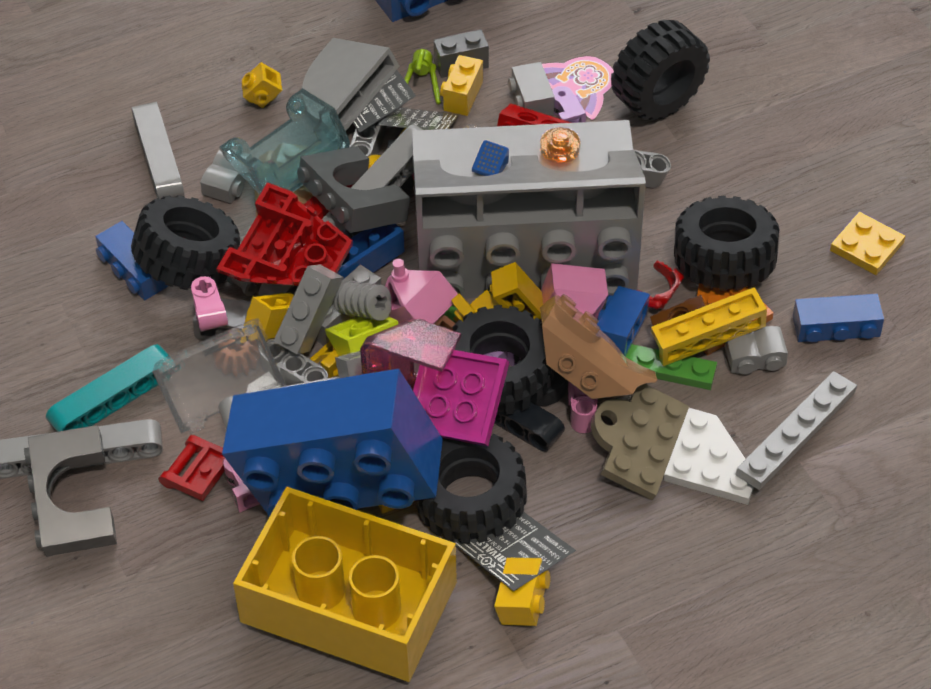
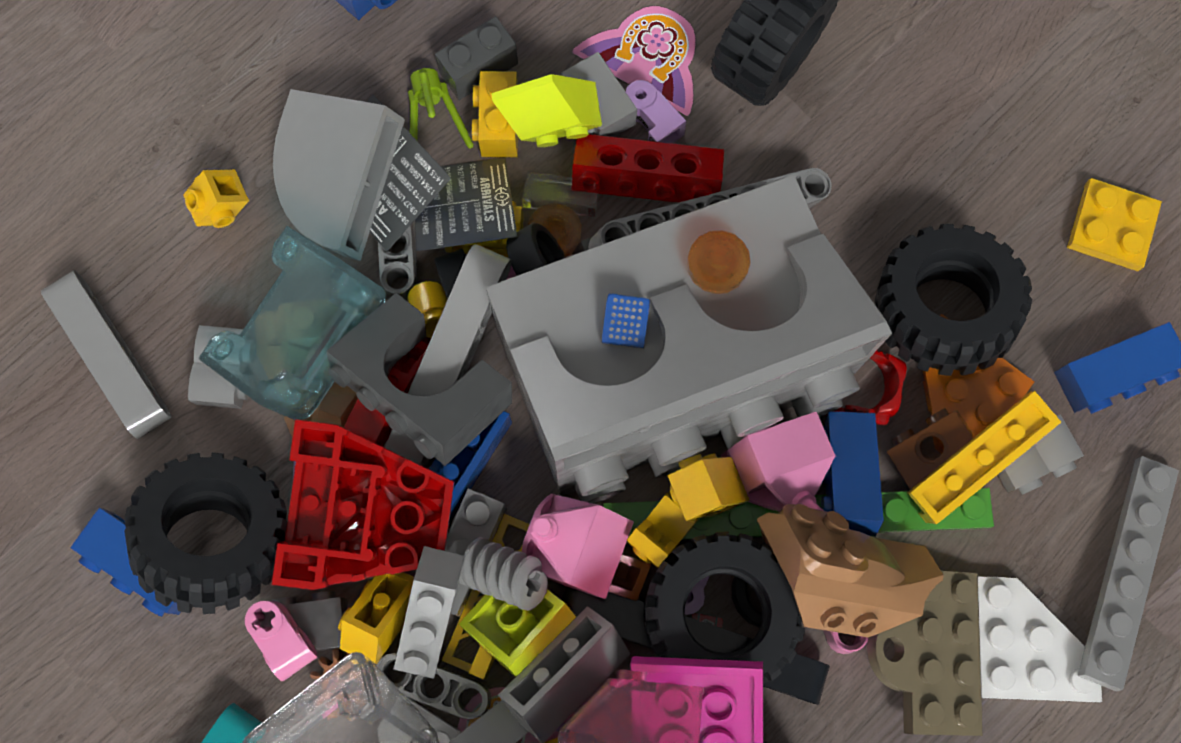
camera: 20 degrees left, 25 degrees up
(495, 78) = (550, 109): none -> neon yellow slope

